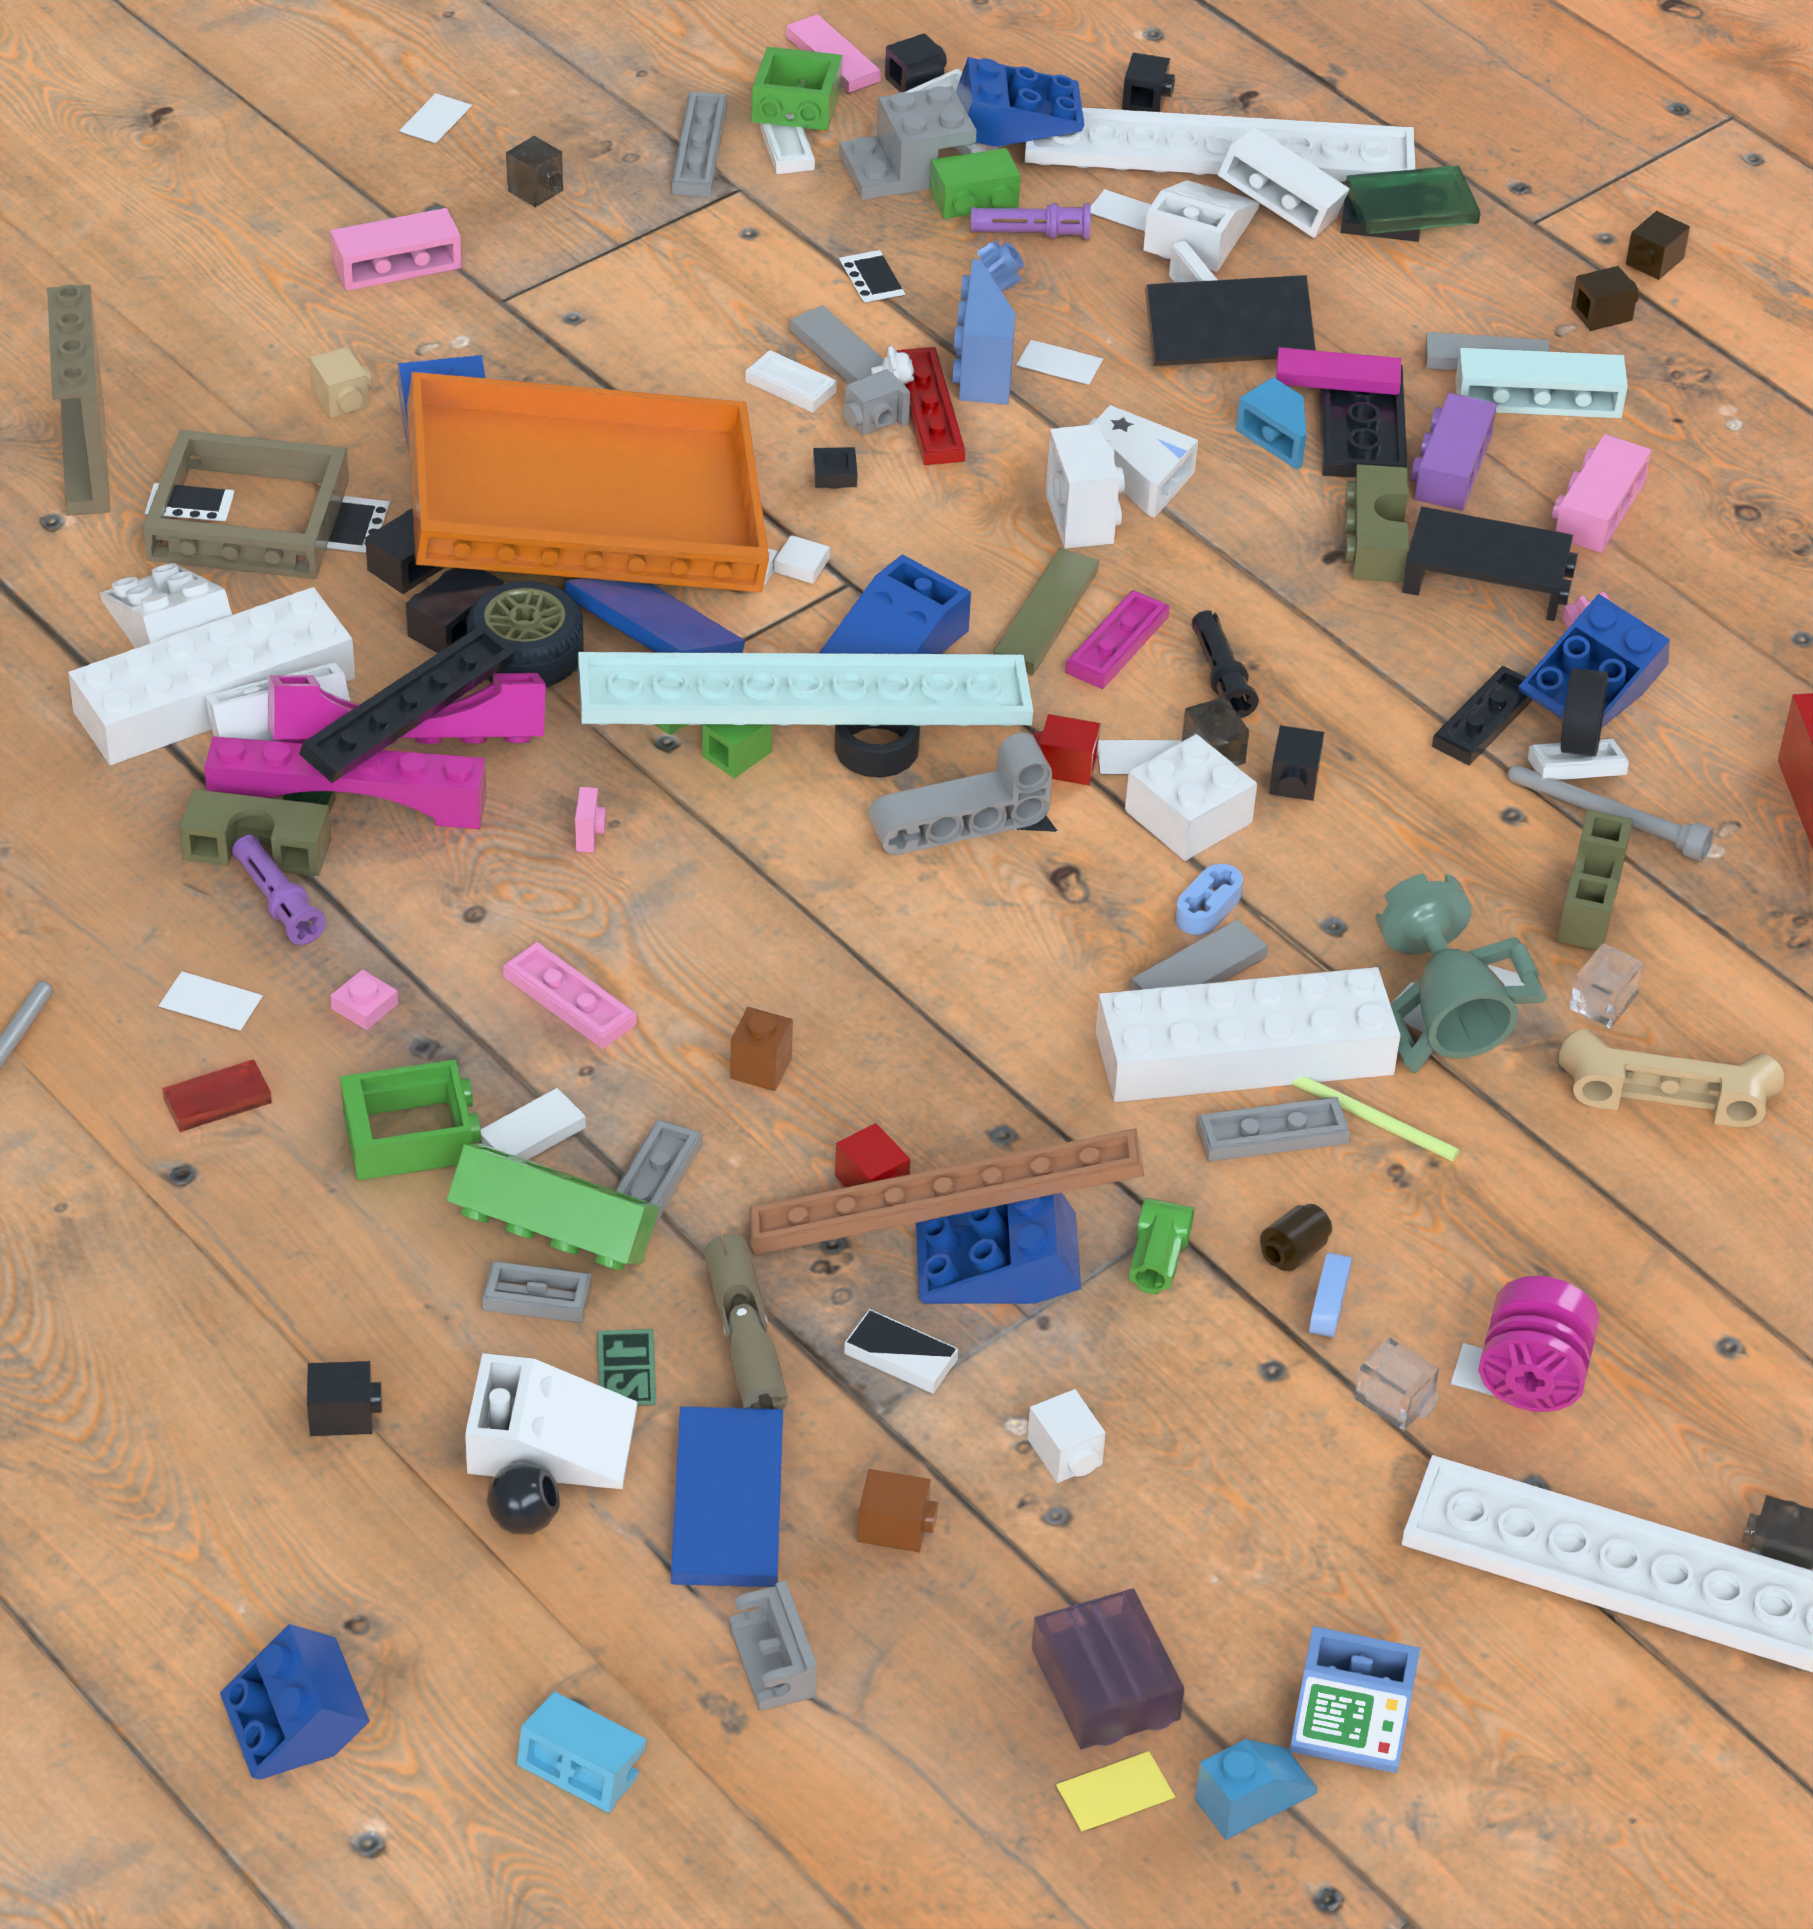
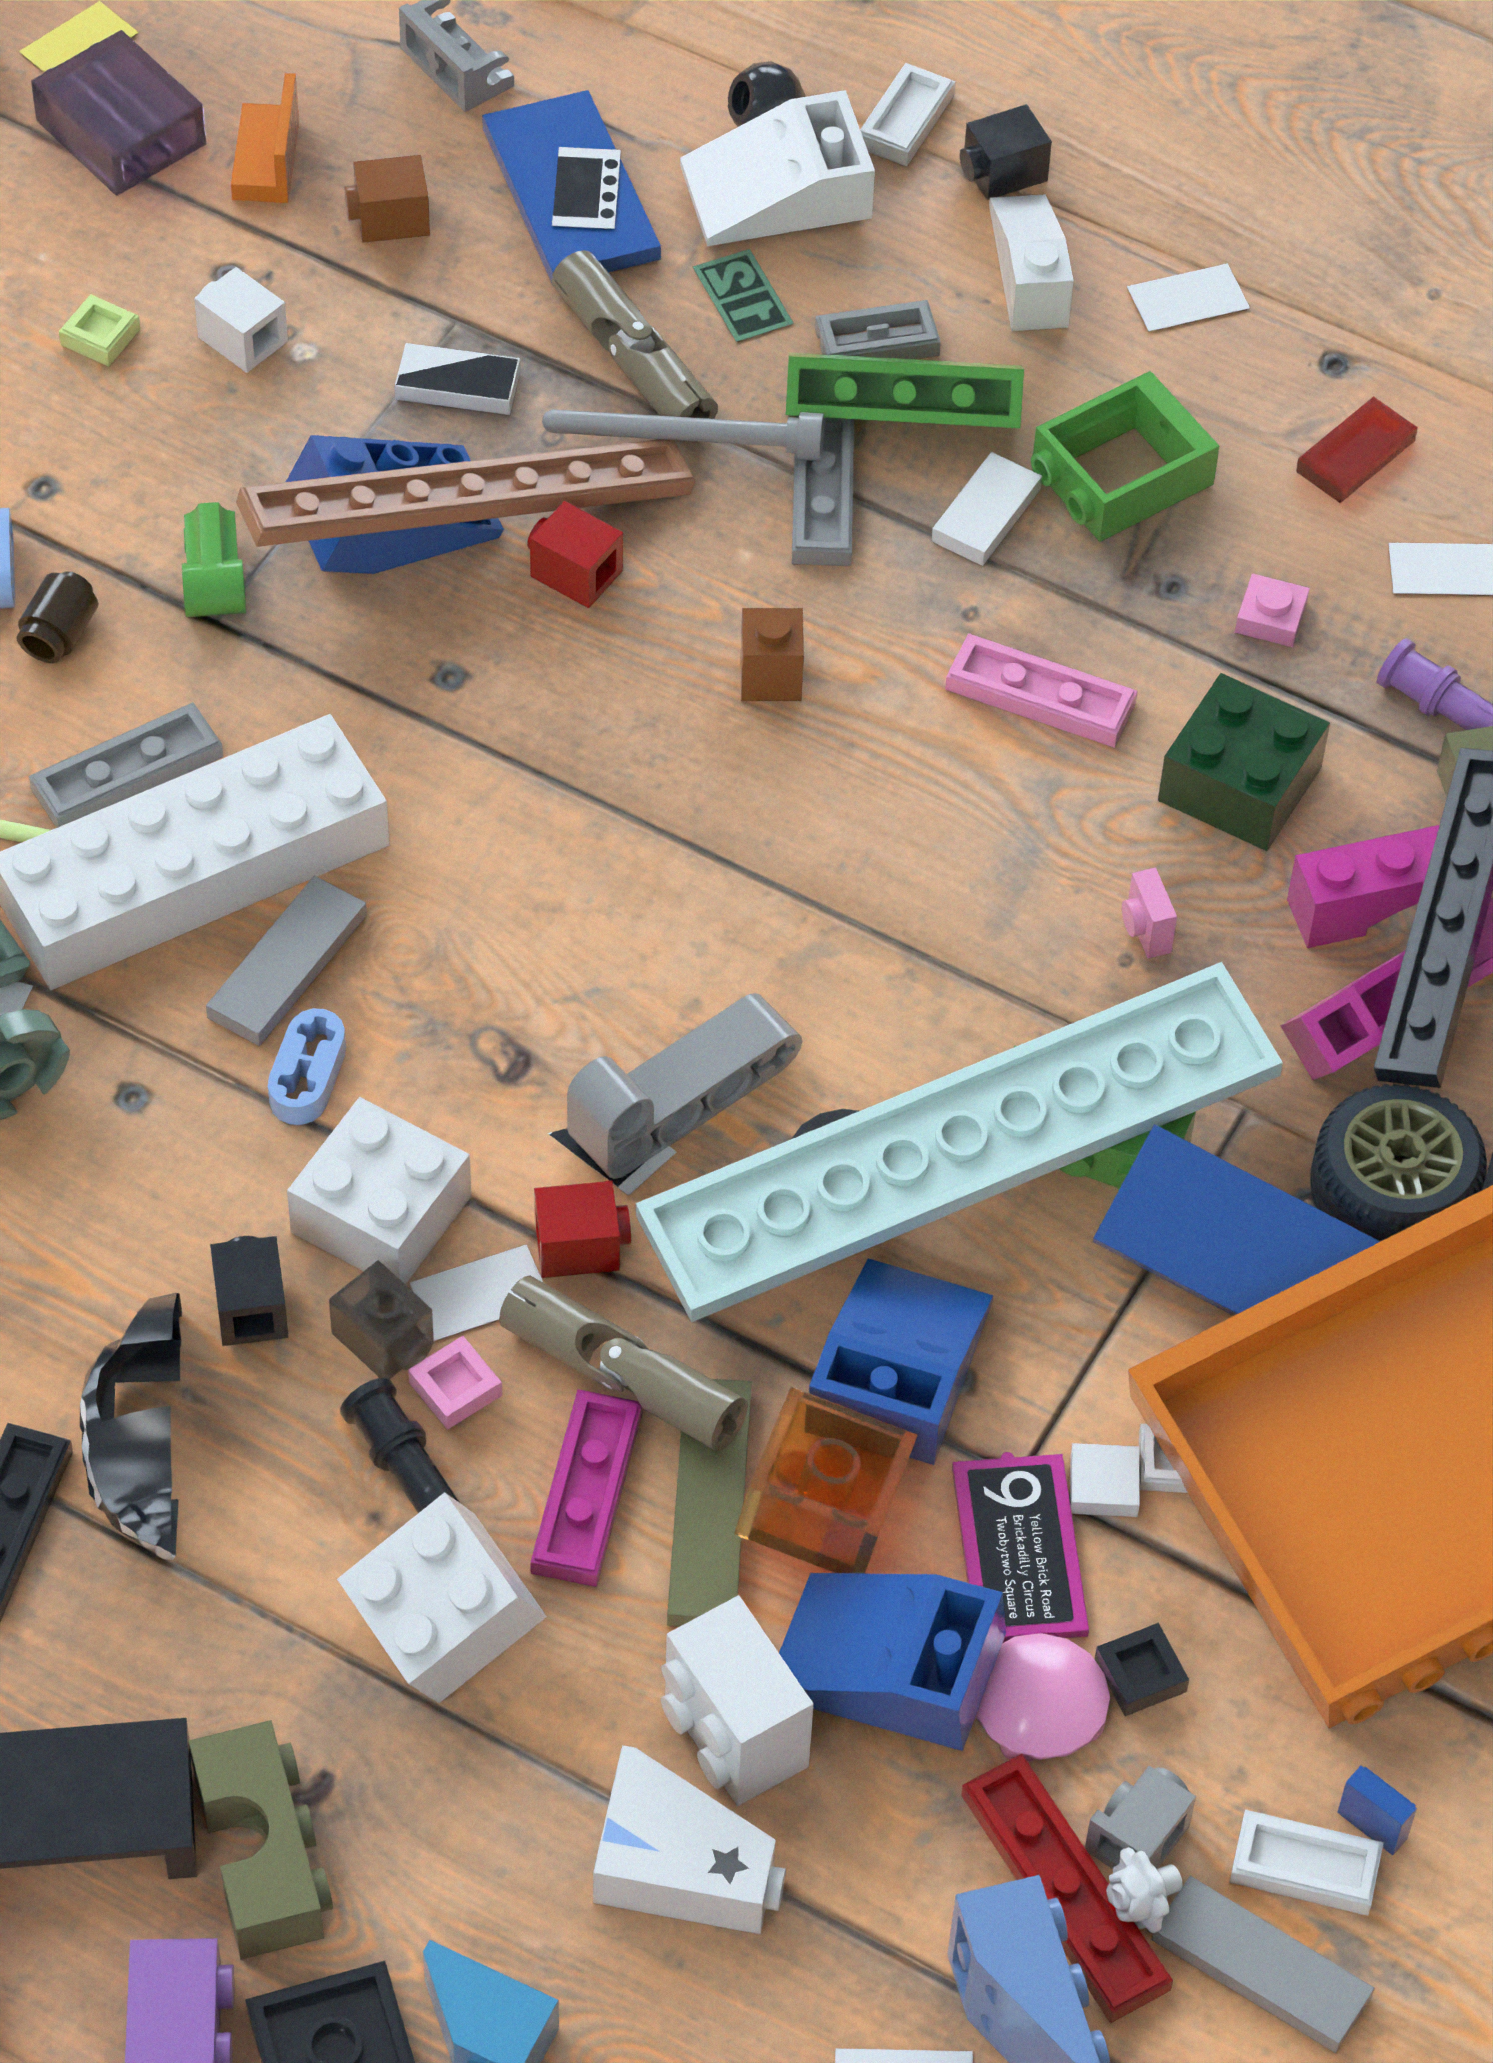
camera: 160 degrees right, 10 degrees up
(261, 1259) = (1188, 297): none -> white sticker
(377, 1298) = (1032, 262): none -> white slope
(398, 1482) = (907, 114): none -> white tile
(462, 886) = (1243, 761): none -> dark green brick
(655, 1188) = (798, 435): none -> light grey piece
(718, 1475) = (586, 188): none -> black sticker
(742, 376) = (1377, 1809): none -> blue tile
(867, 544) = (1022, 1541): none -> piece
(898, 479) = (1044, 1698): none -> bright pink dish
(979, 492) = (897, 1650): none -> blue slope
(981, 1604) = (267, 148): none -> orange panel
(990, 563) = (825, 1483): none -> clear orange brick
(1073, 665) = (658, 1380): none -> dark tan piece
(1175, 695) = (455, 1382): none -> bright pink plate
(1186, 1483) = (99, 330): none -> yellowish green tile
(1235, 575) = (441, 1598): none -> white brick
(1394, 718) = (131, 1454): none -> black animal

